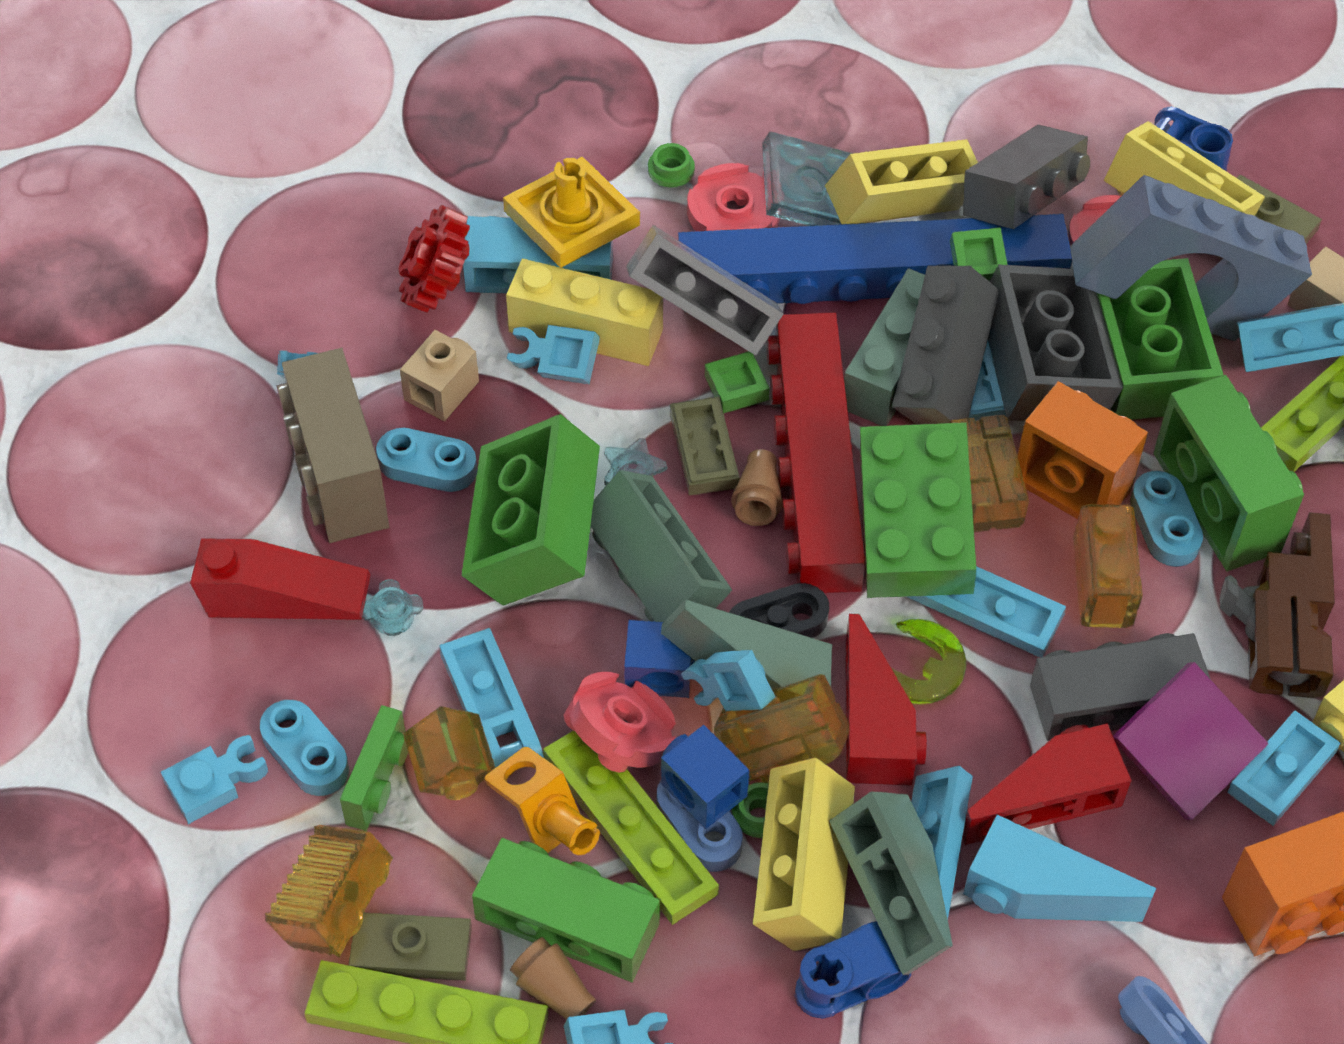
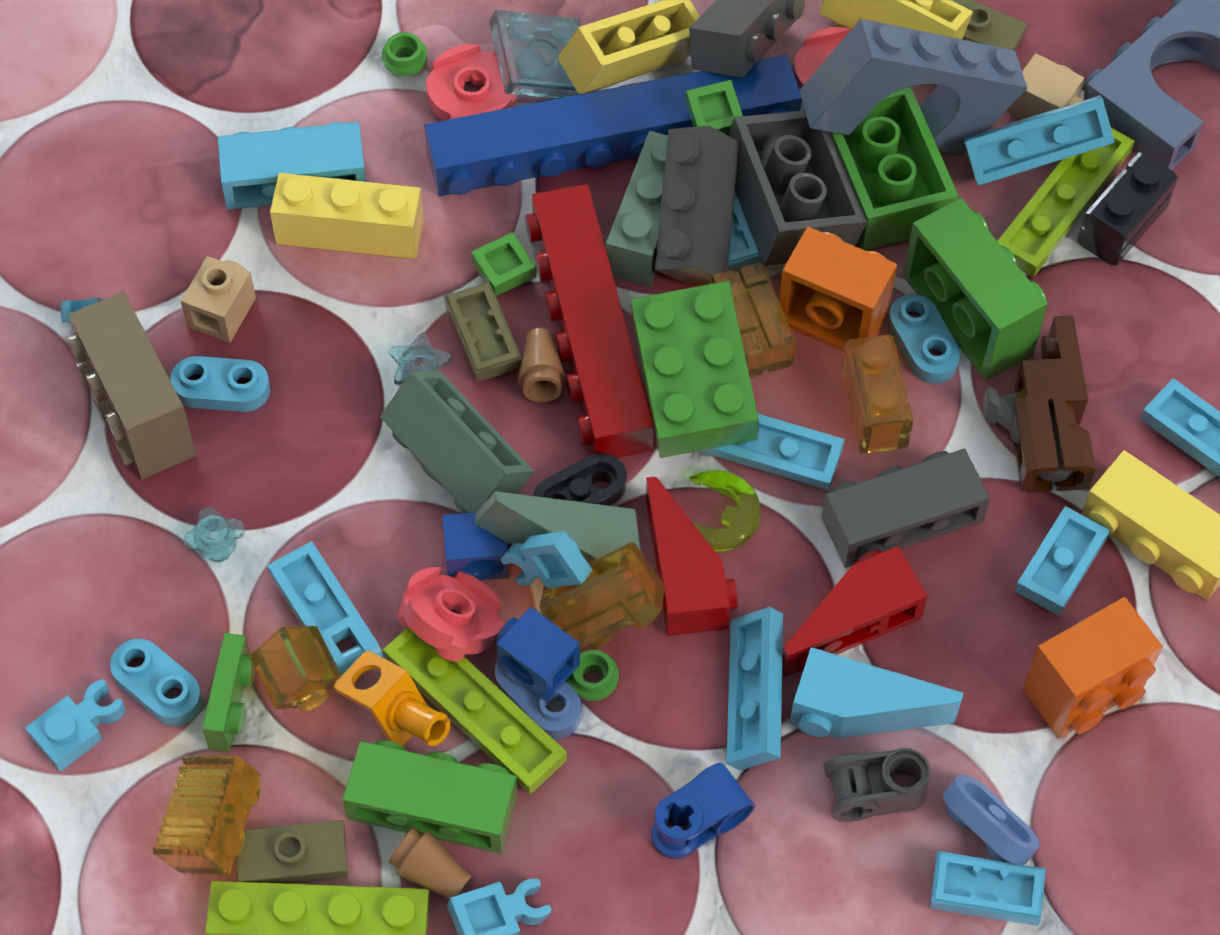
camera: 10 degrees left, 5 degrees up
(275, 582) = (100, 528): red slope -> none
(434, 258) = (193, 184): red gear -> none
(531, 510) = (332, 422): bright green brick -> none
(561, 355) = (333, 260): medium azure plate -> none
(571, 211) = (318, 119): yellow plate -> none
(704, 290) = (459, 181): light grey brick -> none
(801, 858) = (641, 711): light yellow brick -> none
(896, 875) = (729, 718): sand green slope -> none
(1044, 973) = (872, 783): none -> dark grey piece
(1190, 741) = (974, 550): magenta tile -> none

